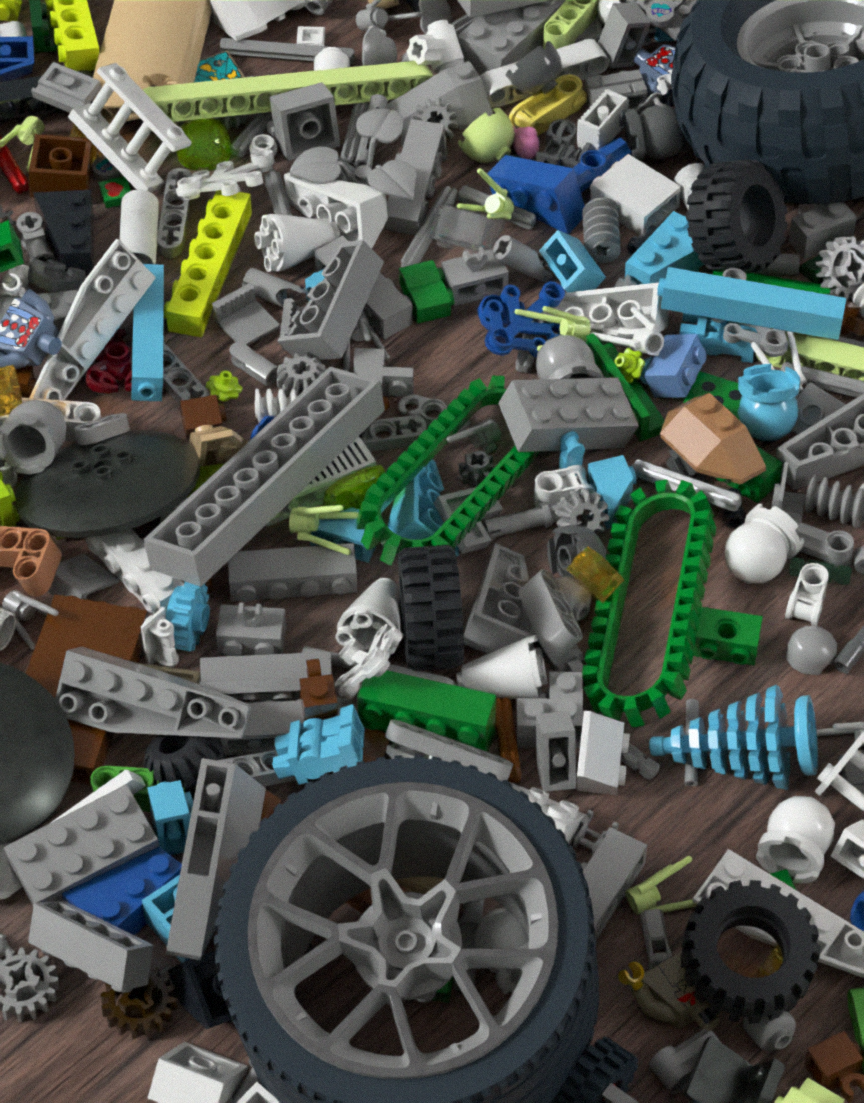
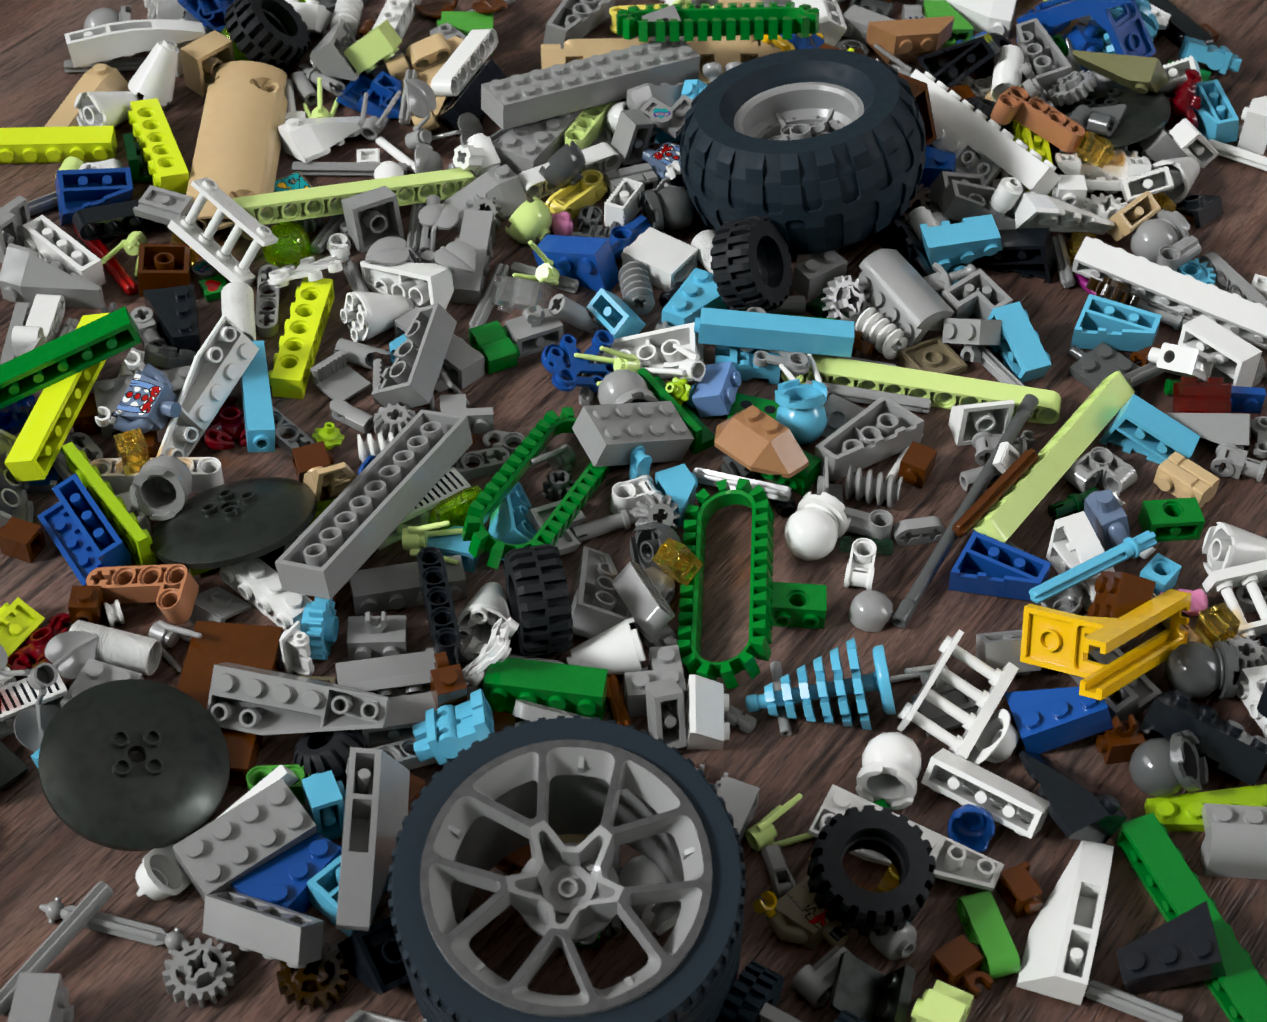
camera: 10 degrees left, 5 degrees down
(101, 429) = (224, 478): light grey beam -> none
(320, 601) = (439, 604): none -> black beam
(343, 33) = (396, 153): none -> white bar

